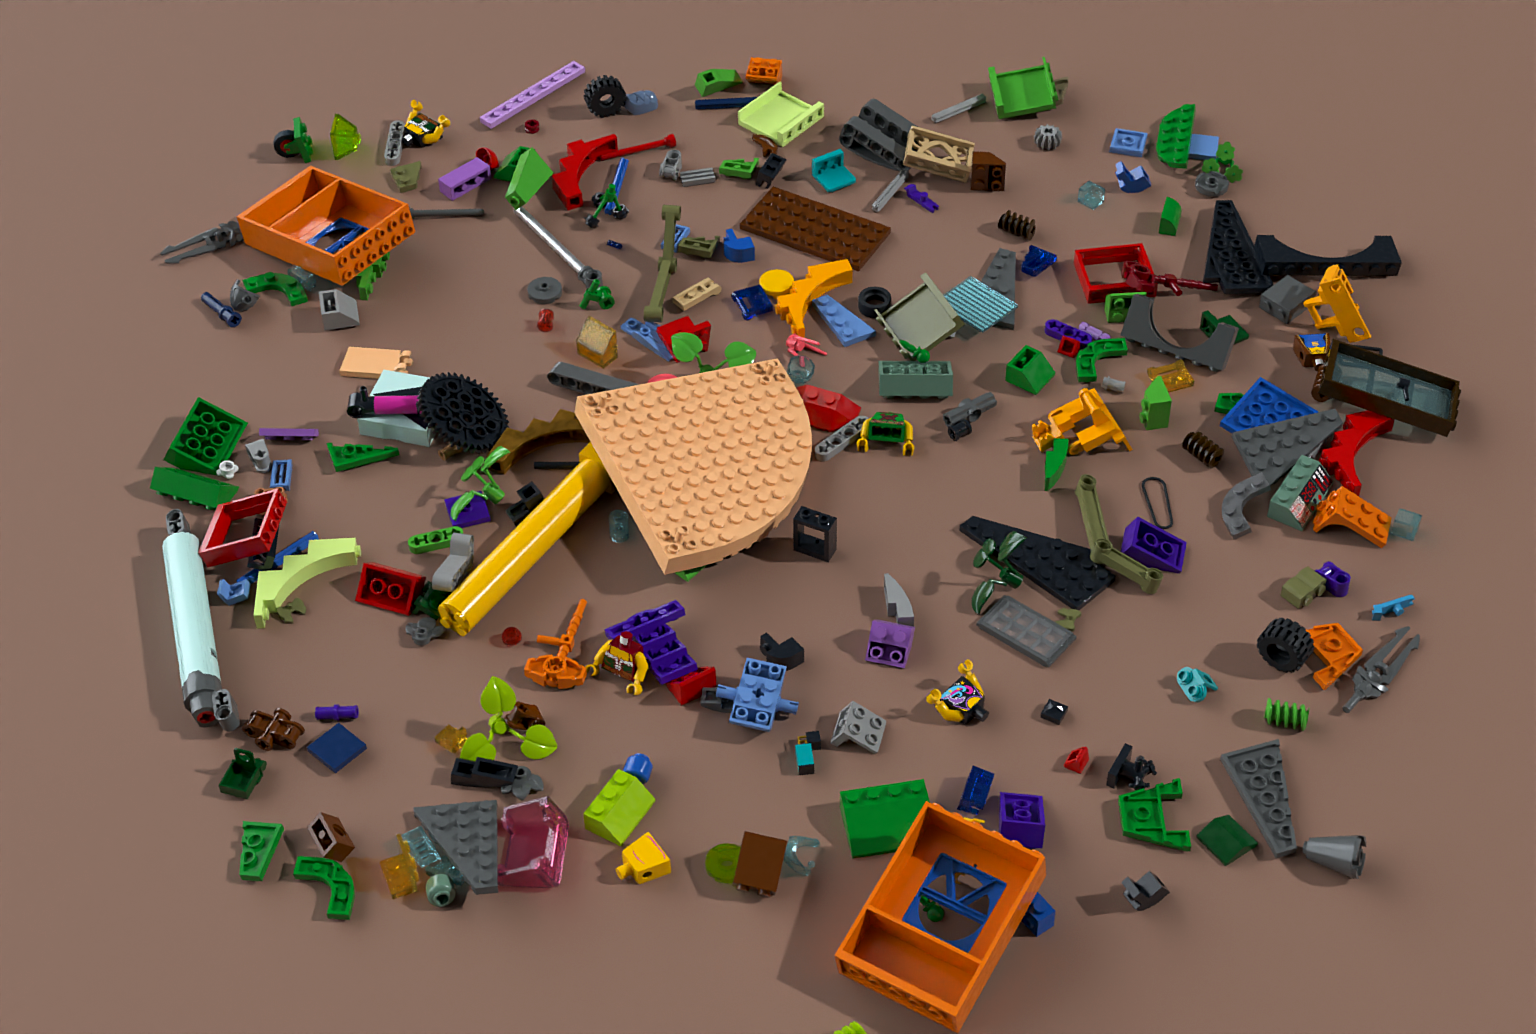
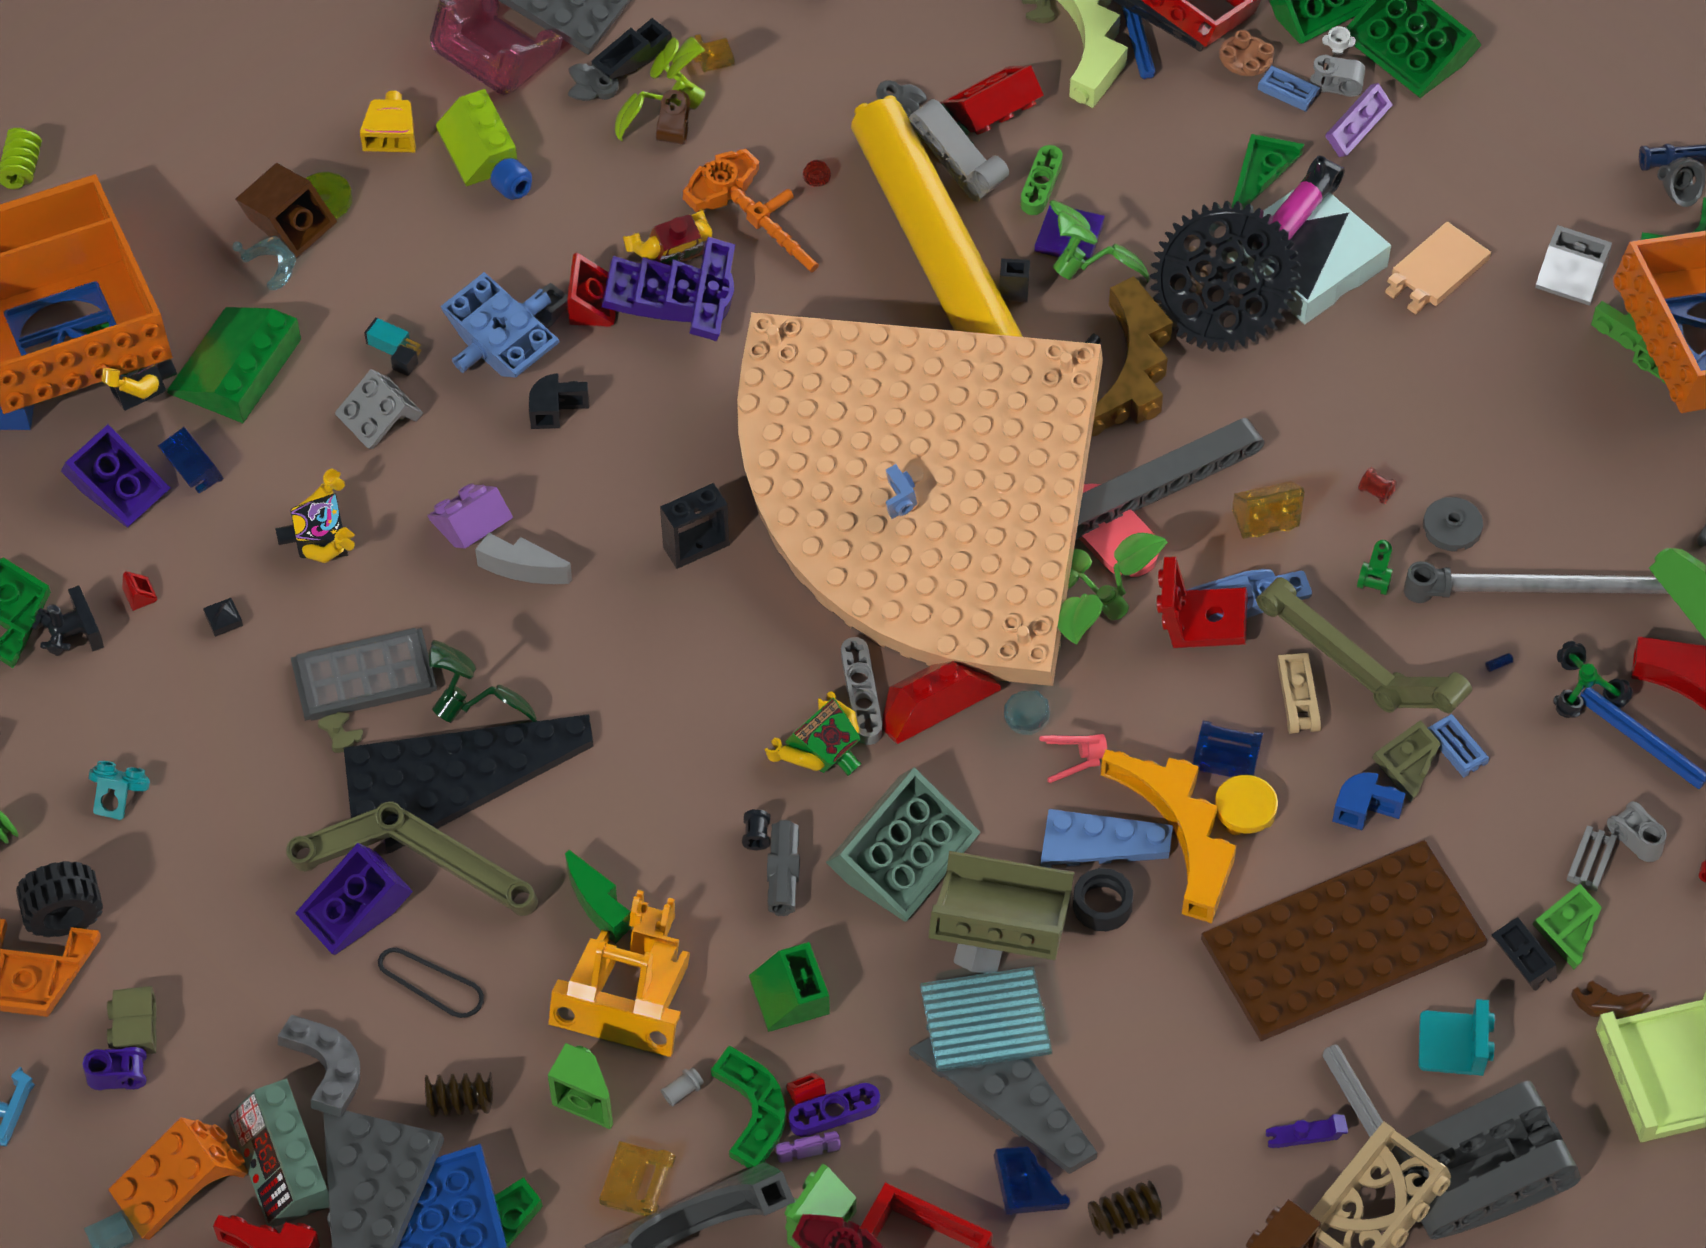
camera: 125 degrees right, 10 degrees up
(735, 435) = (905, 495): none -> medium blue bracket
(921, 355) = (934, 874): green bar -> none

